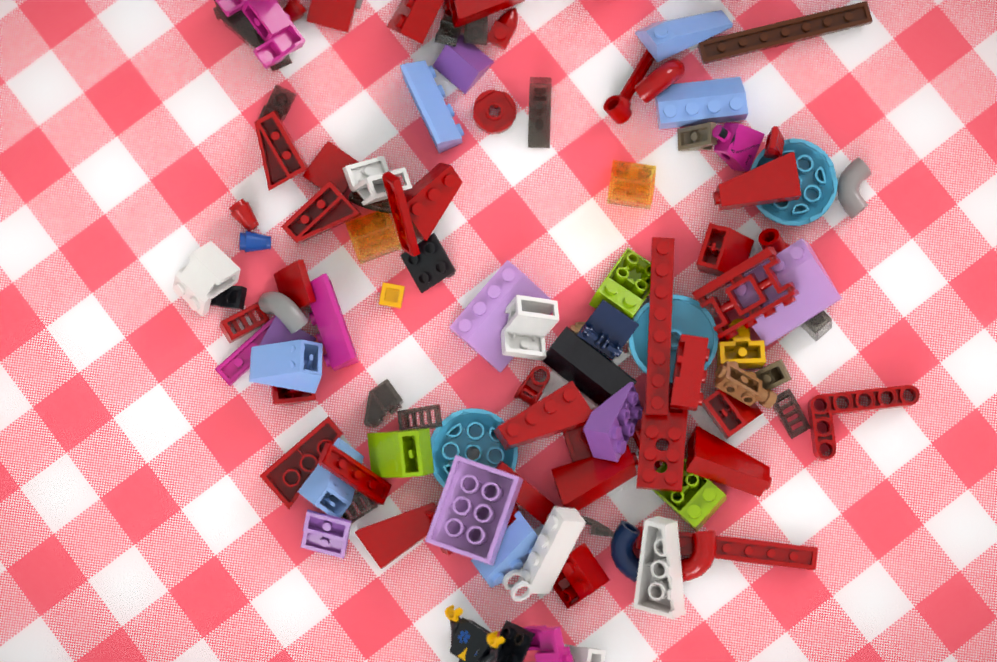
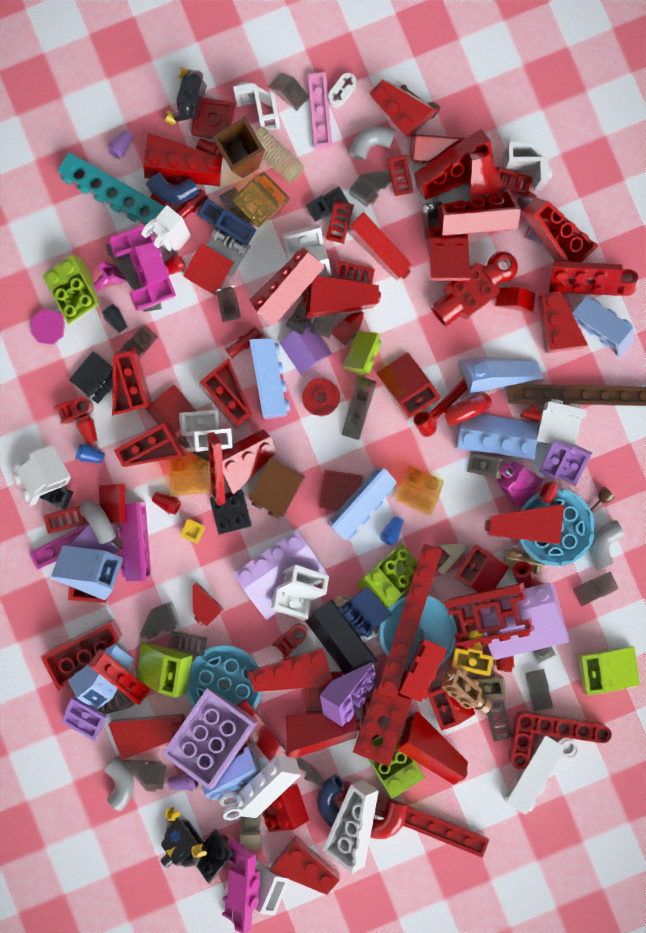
camera: 15 degrees right, 5 degrees up
(171, 113) = (49, 325): none -> dark pink piece
(188, 63) = (72, 288): none -> lime slope
(222, 198) = (70, 410): none -> red piece
(237, 156) = (94, 377): none -> black hinge
(243, 86) = (115, 318): none -> black cone
(354, 272) = (166, 502): none -> red cone
(365, 36) = (228, 303): none -> clear smoke slope
(389, 135) = (226, 394): none -> red wedge
(389, 596) = (123, 784): none -> light grey cylinder
(392, 75) = (243, 342): none -> red pin
(413, 577) = (147, 773): none -> clear smoke slope
(427, 374) = (204, 606): none -> red slope
(457, 576) = (182, 782): none -> medium lavender cone
(472, 221) = (276, 488): none -> reddish brown slope
(528, 49) = (360, 355): none -> lime slope
(544, 209) = (338, 488): none -> red tile
(546, 610) = (250, 833): none -> dark tan slope
(572, 213) = (362, 503): none -> light blue slope
(588, 73) = (408, 386): none -> red slope
(613, 238) = (392, 531): none -> blue cone
(619, 634) = (305, 867): none -> red wedge
(687, 240) = (454, 552): none -> dark tan slope
(732, 68) = (531, 413): none -> red slope
(758, 226) = (514, 556): none -> tan hinge
(766, 70) = (559, 422): none -> white piece
(780, 348) = (505, 664): none -> red cone
(783, 108) = (565, 462): none -> medium lavender slope
(825, 368) = (538, 690): none -> clear smoke slope
(838, 135) = (604, 496): none -> reddish brown hinge
(850, 452) = (541, 766): none -> white hinge
(856, 239) = (595, 588): none -> clear smoke slope
(895, 323) = (608, 670): none -> lime slope

